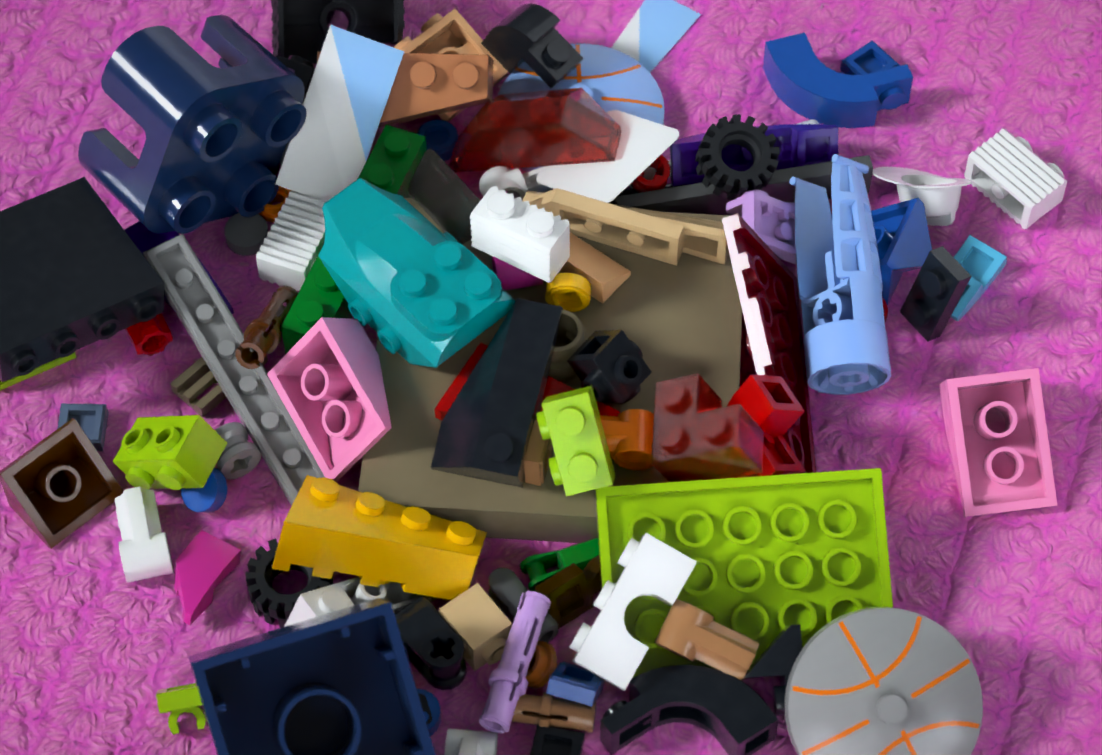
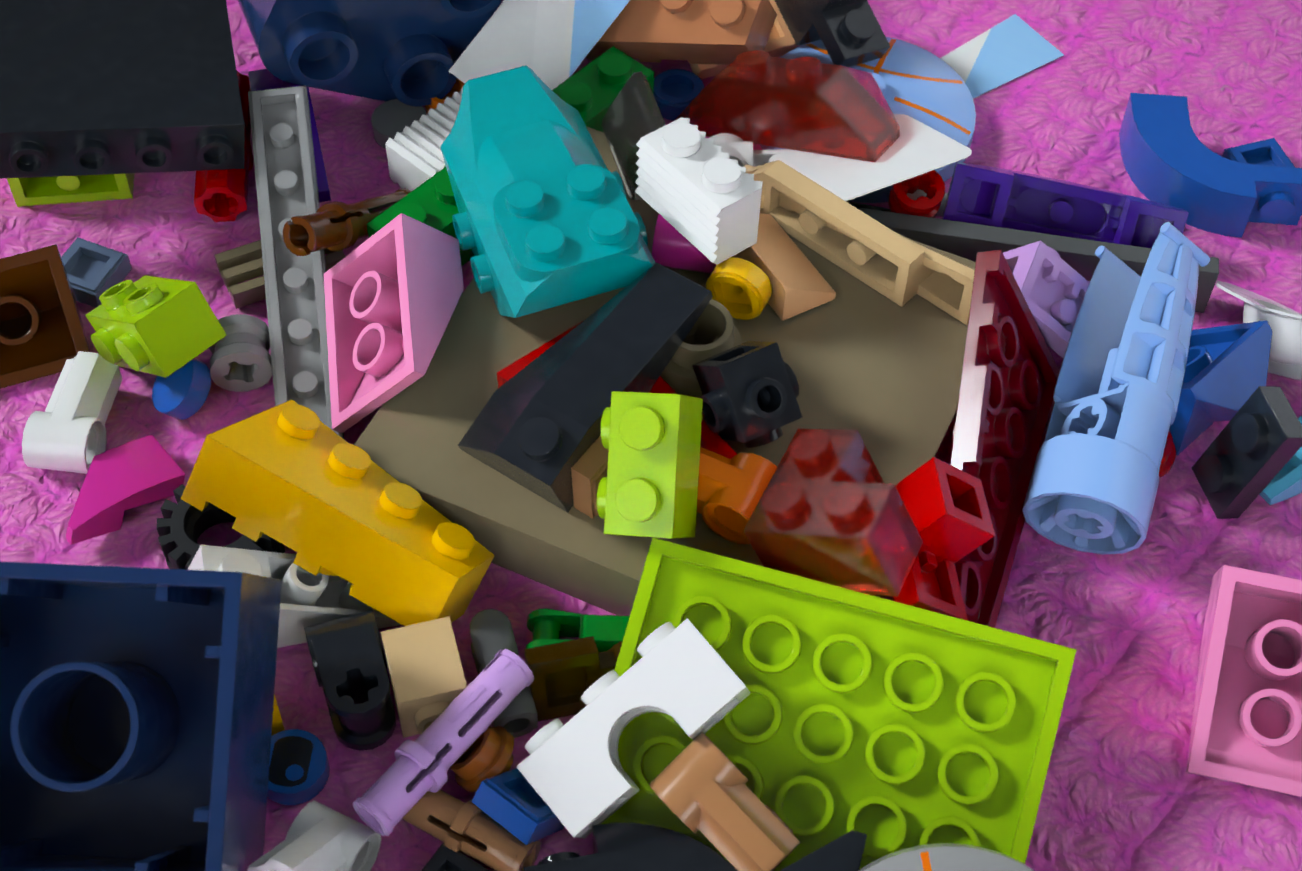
camera: 20 degrees right, 5 degrees down
(741, 134) = (1043, 172): black tyre -> none

